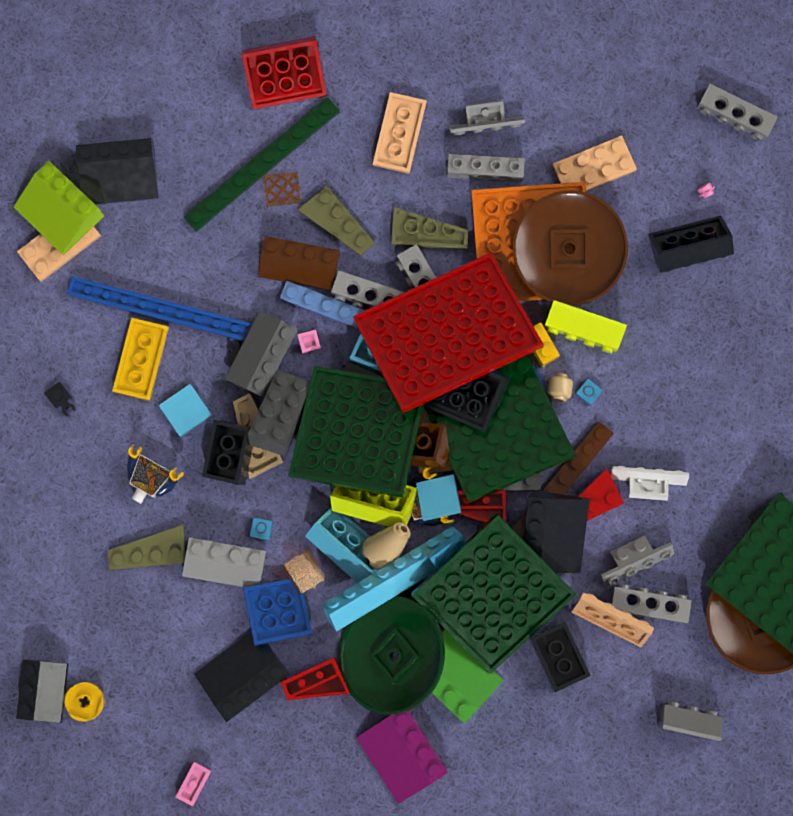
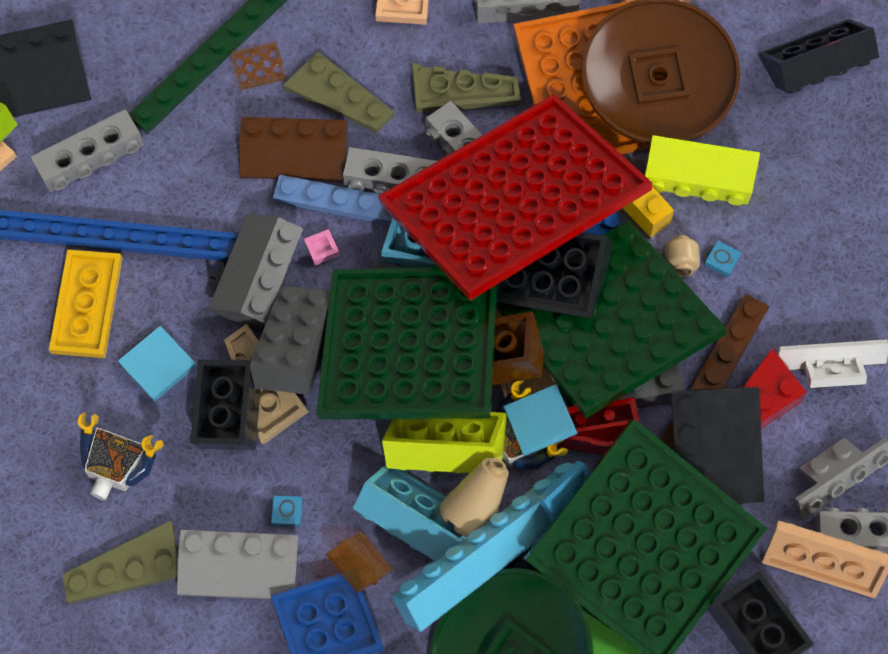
camera: 10 degrees left, 15 degrees down
(123, 247) = (91, 139): none -> light grey brick

